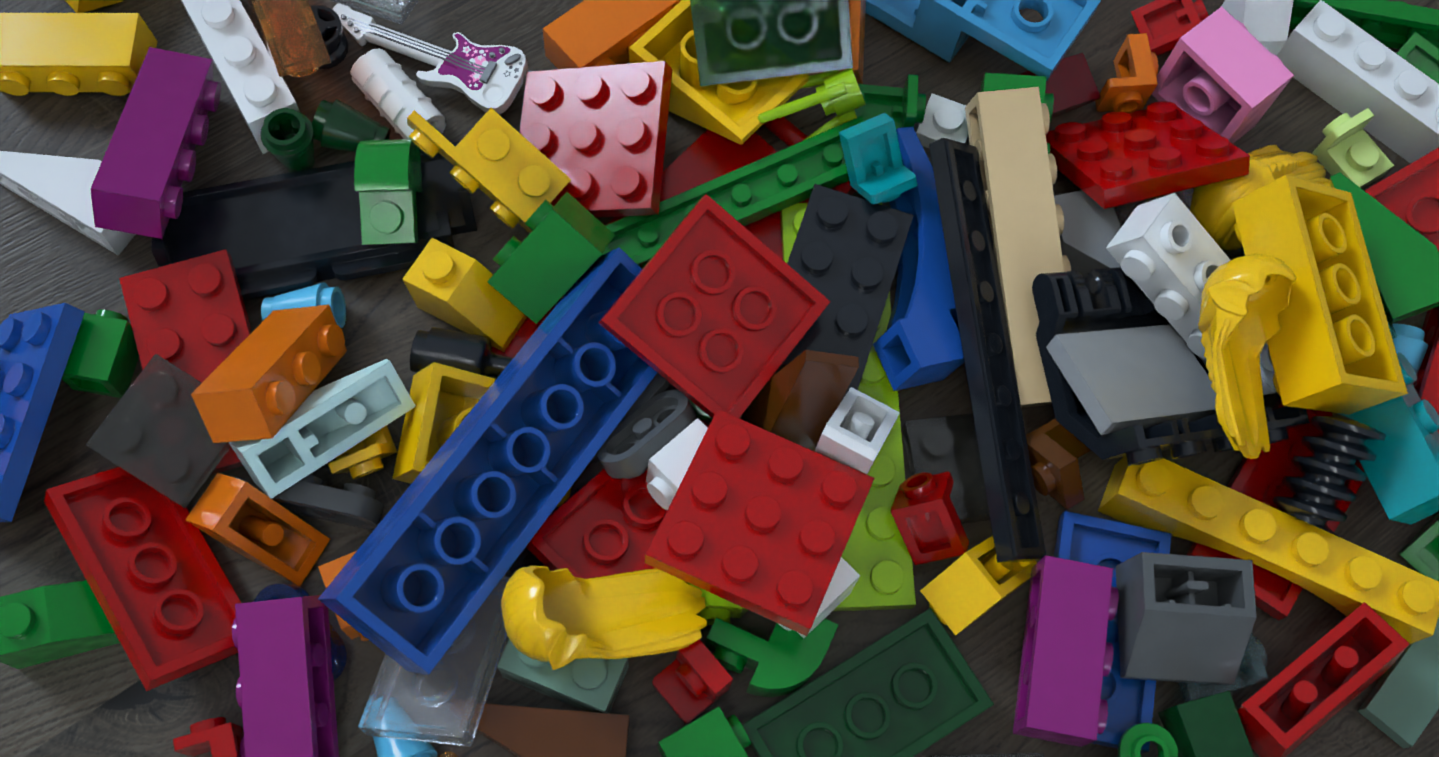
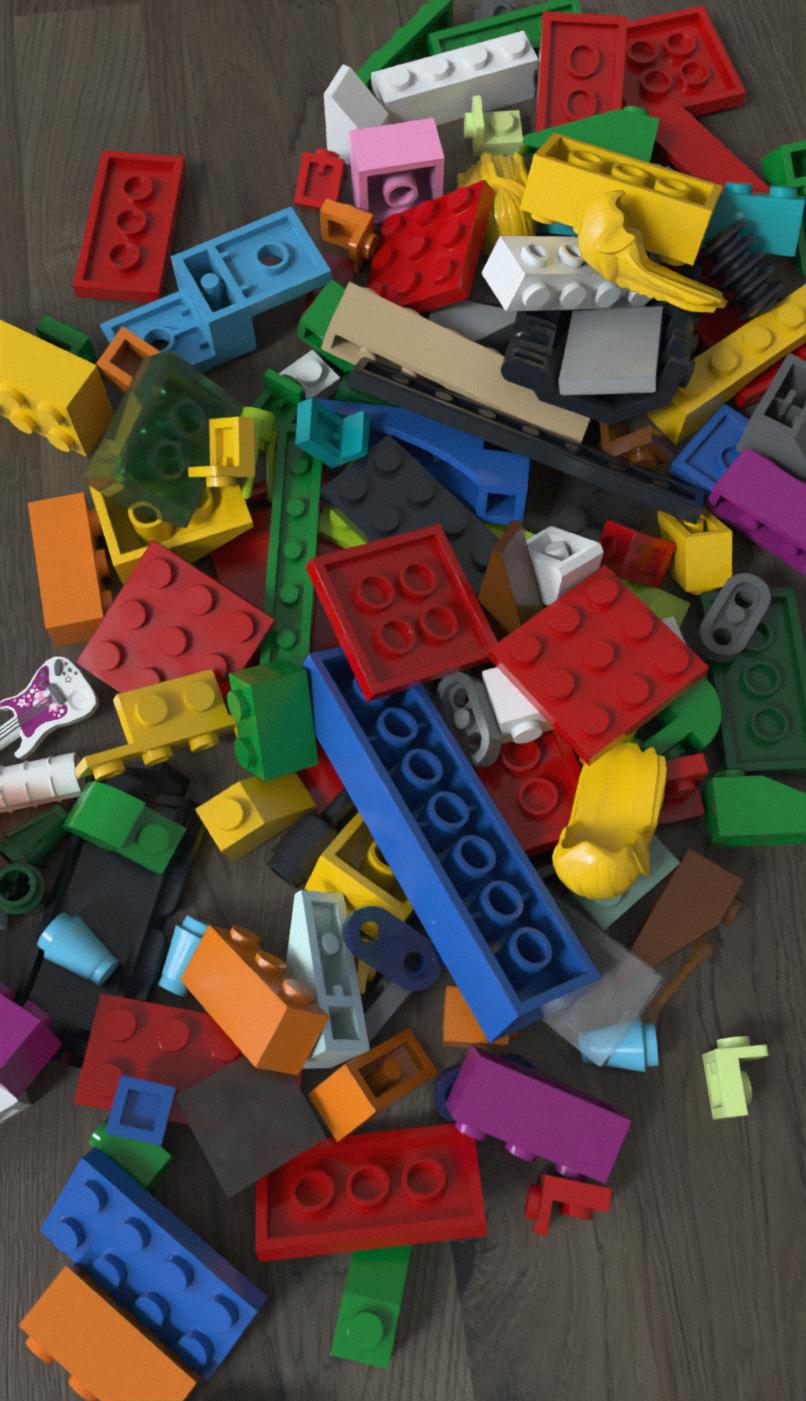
camera: 55 degrees left, 0 degrees up
(129, 331) = (140, 1110): none -> blue plate
(261, 212) = (77, 949): none -> medium azure cone
(373, 470) = (391, 946): none -> clear blue plate
(794, 79) = (230, 452): none -> yellow bracket
(911, 649) = (733, 621): none -> dark grey plate

